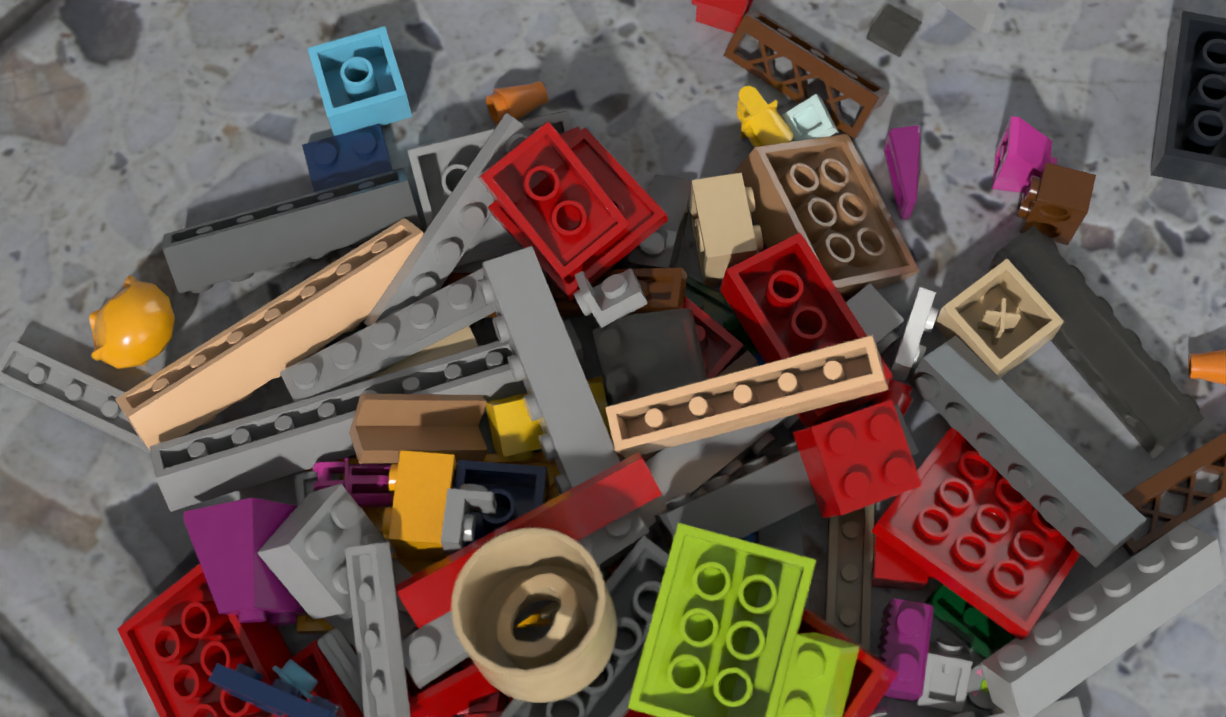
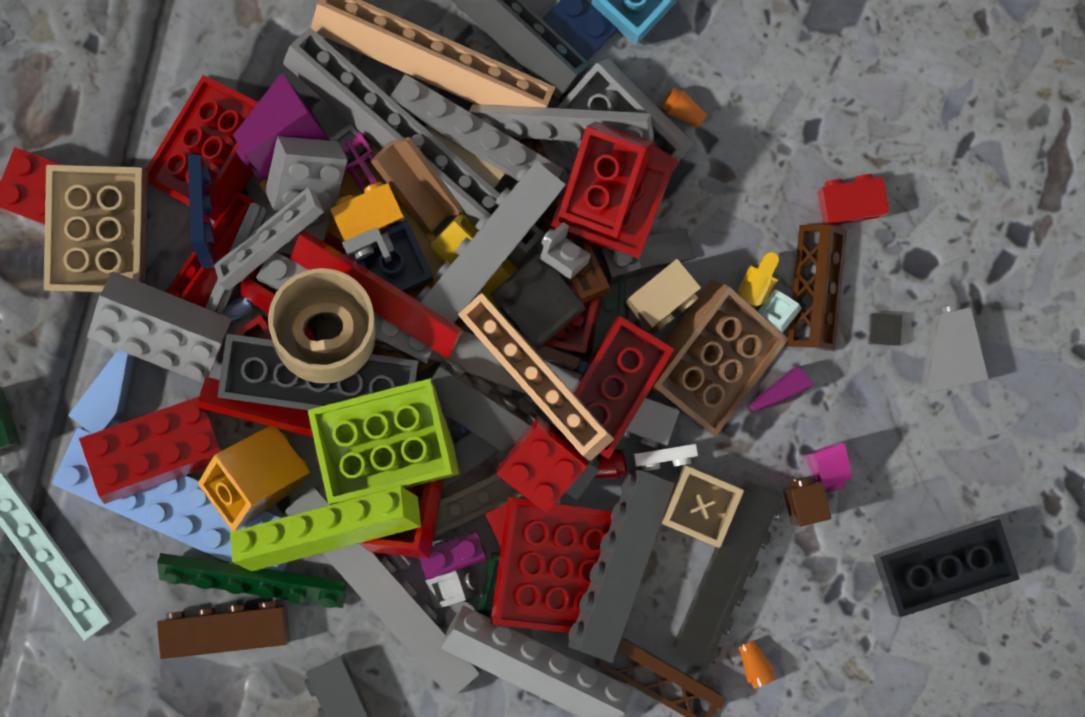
camera: 55 degrees right, 15 degrees up
(297, 677) = (223, 204): medium azure plate -> none

